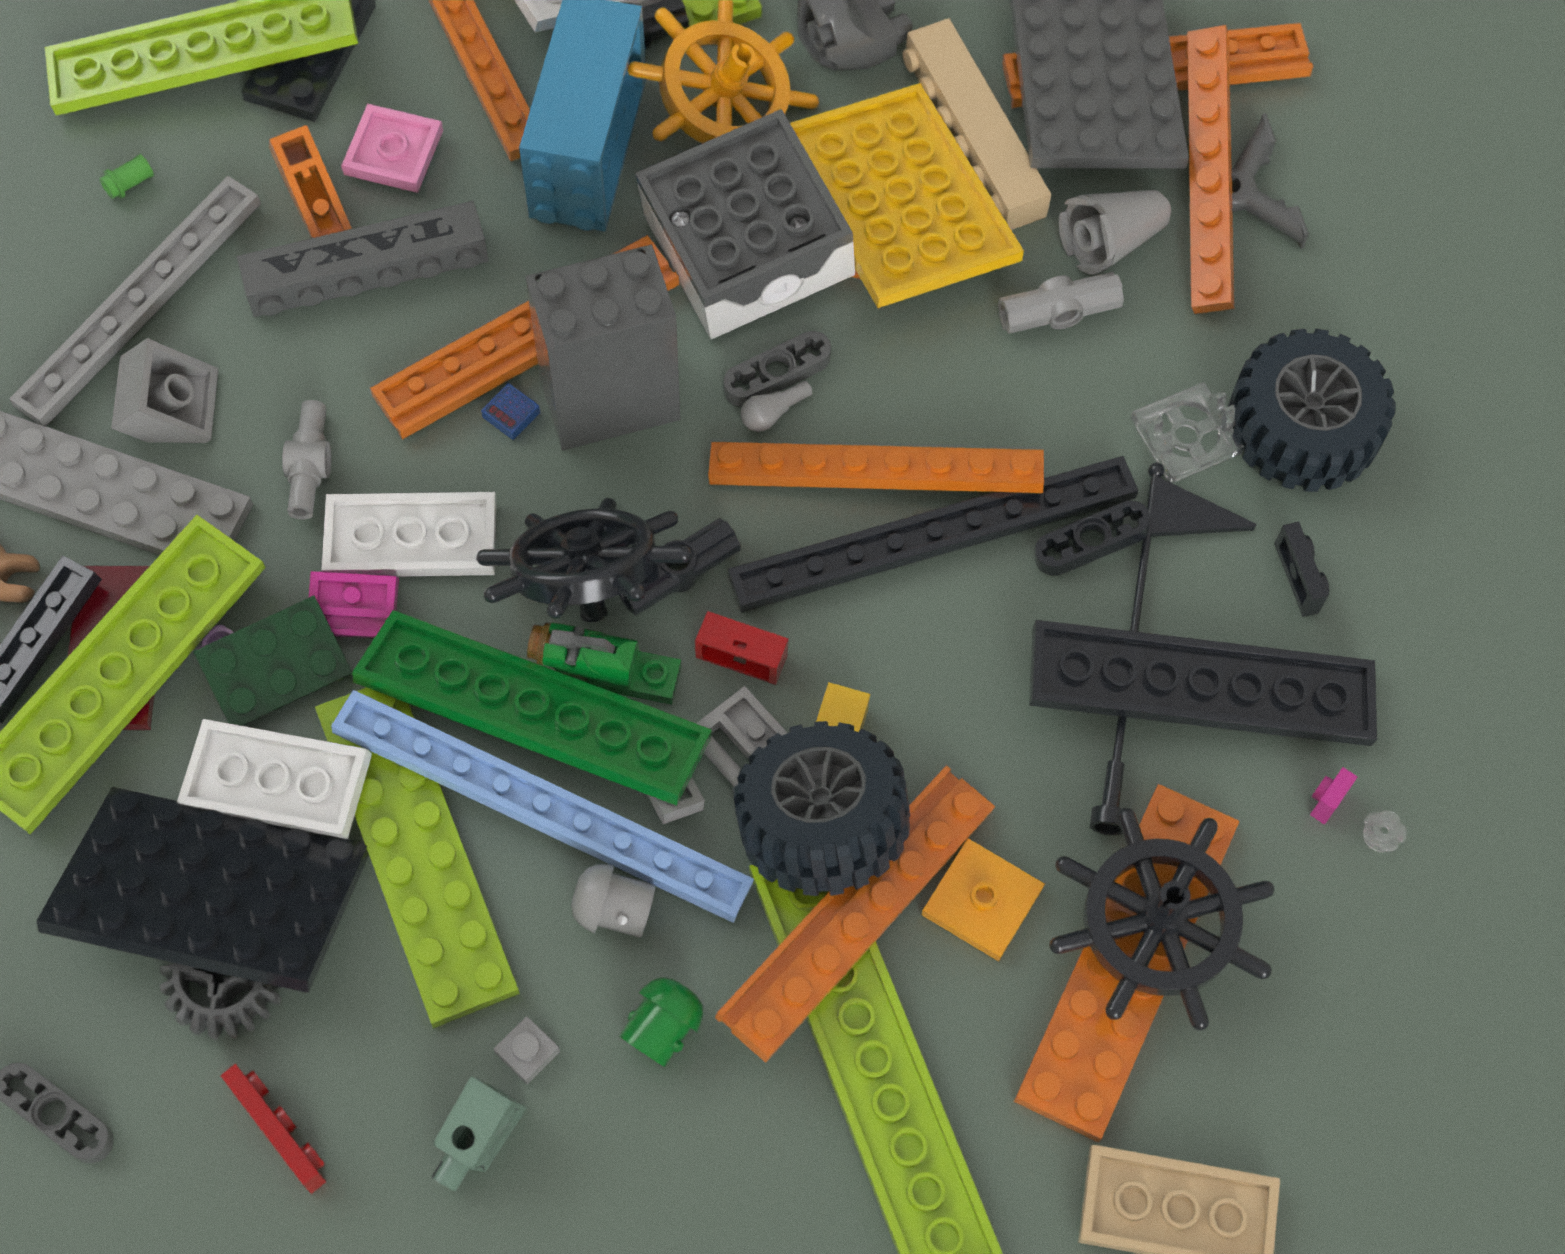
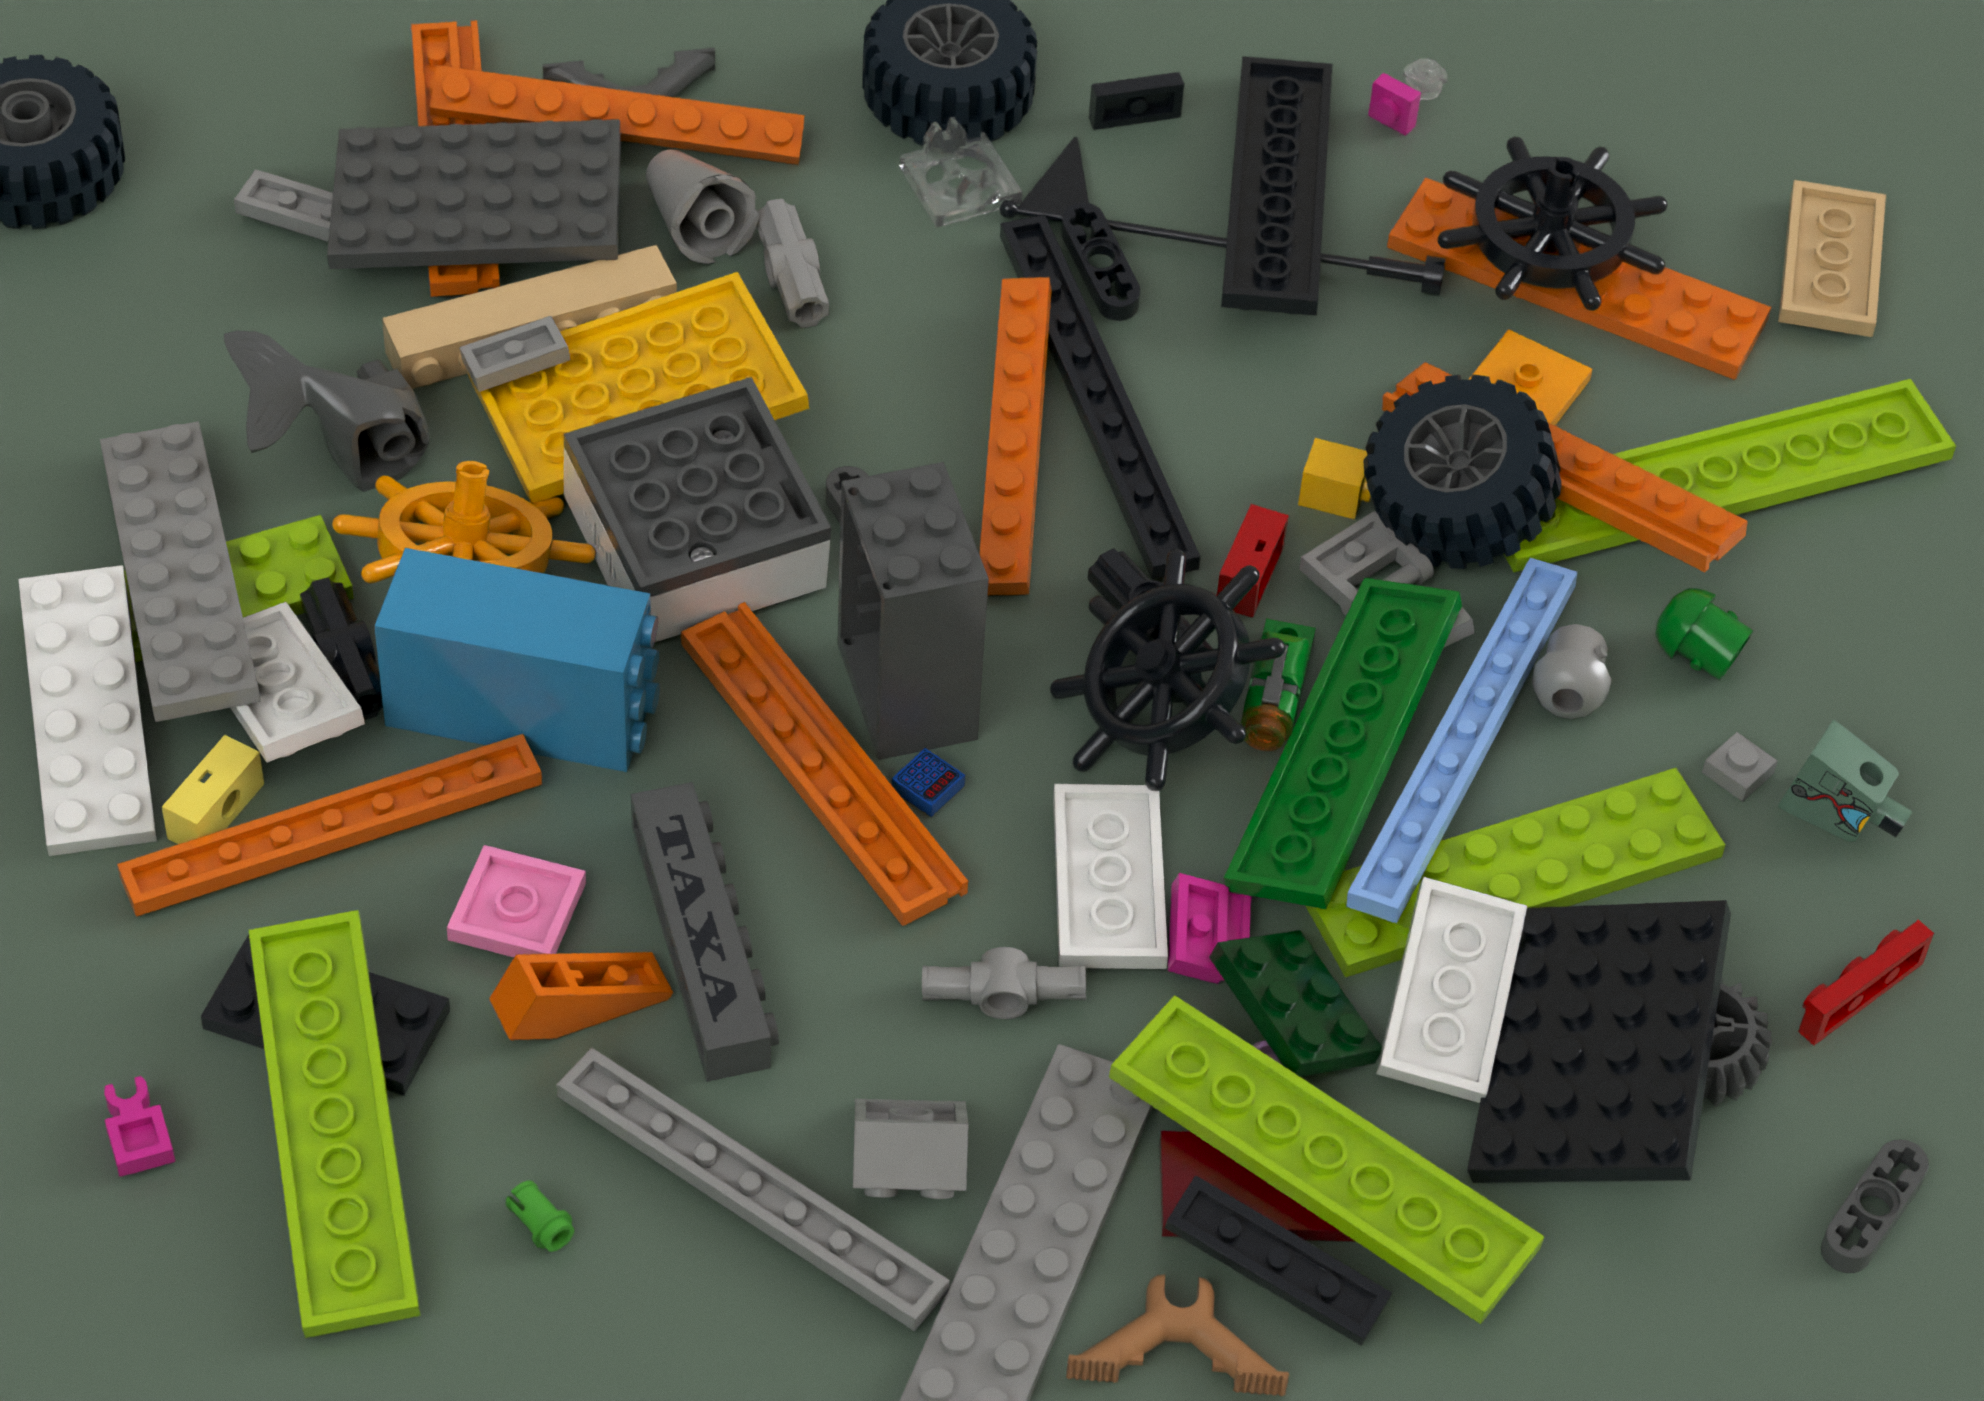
camera: 90 degrees left, 15 degrees down
(916, 103) = (515, 353): none -> light grey plate

